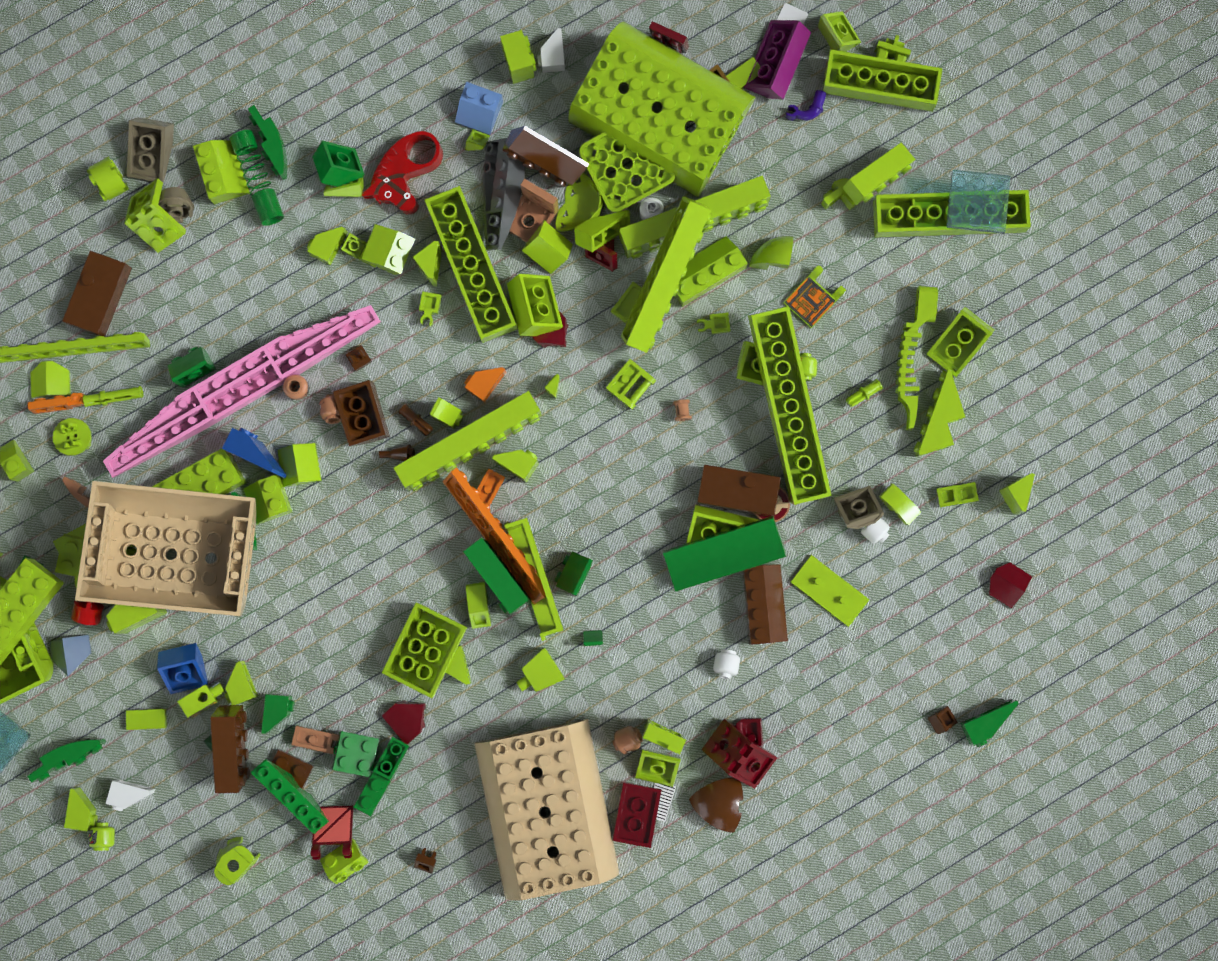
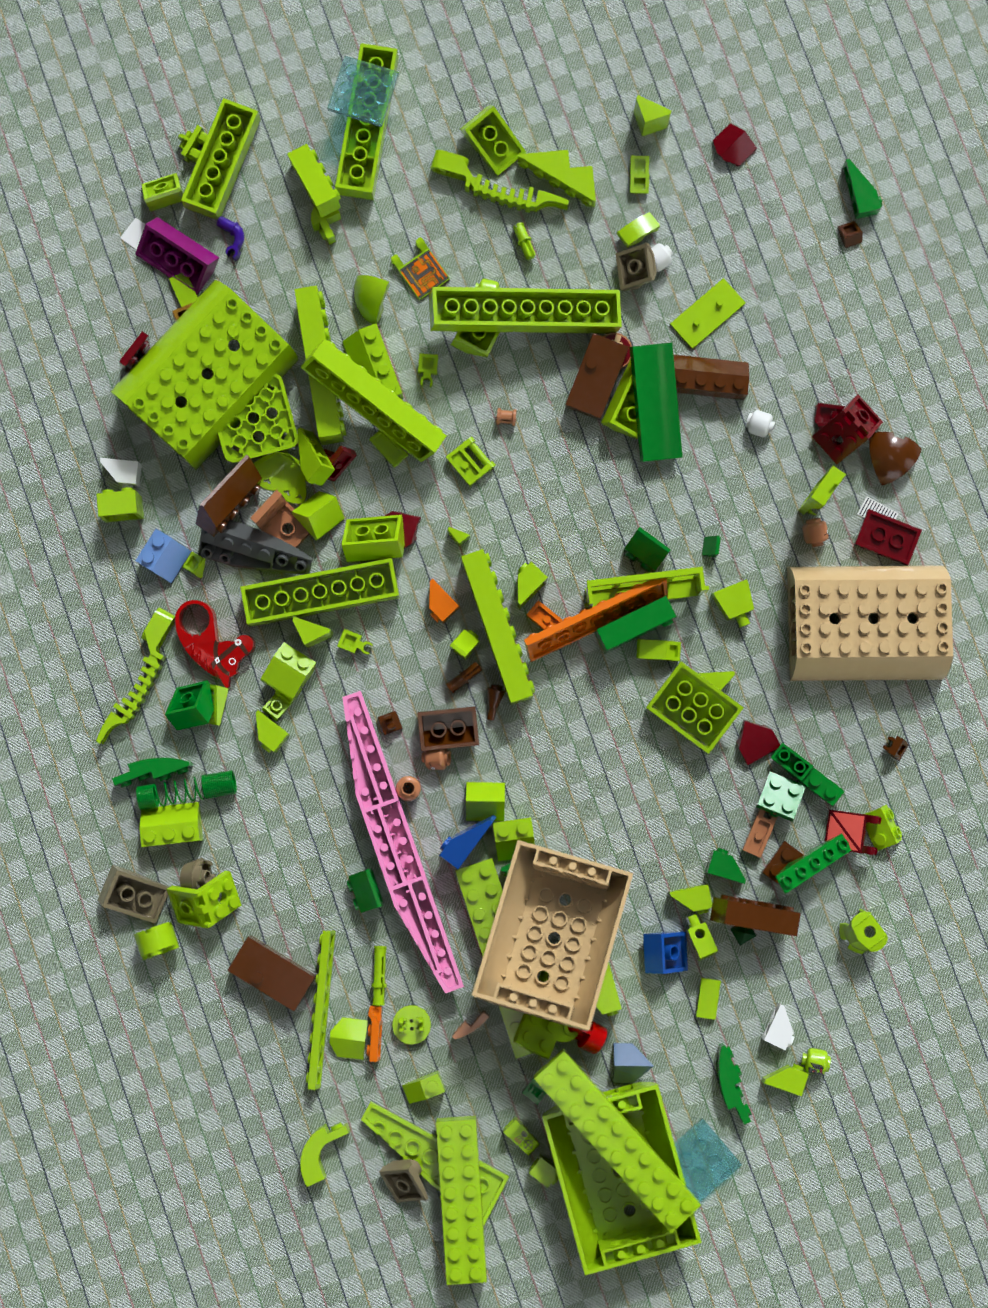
camera: 80 degrees left, 0 degrees up
(399, 117) = (154, 635): none -> lime piece
(651, 207) = (305, 400): white head -> none
(657, 767) = (846, 508): lime slope -> none

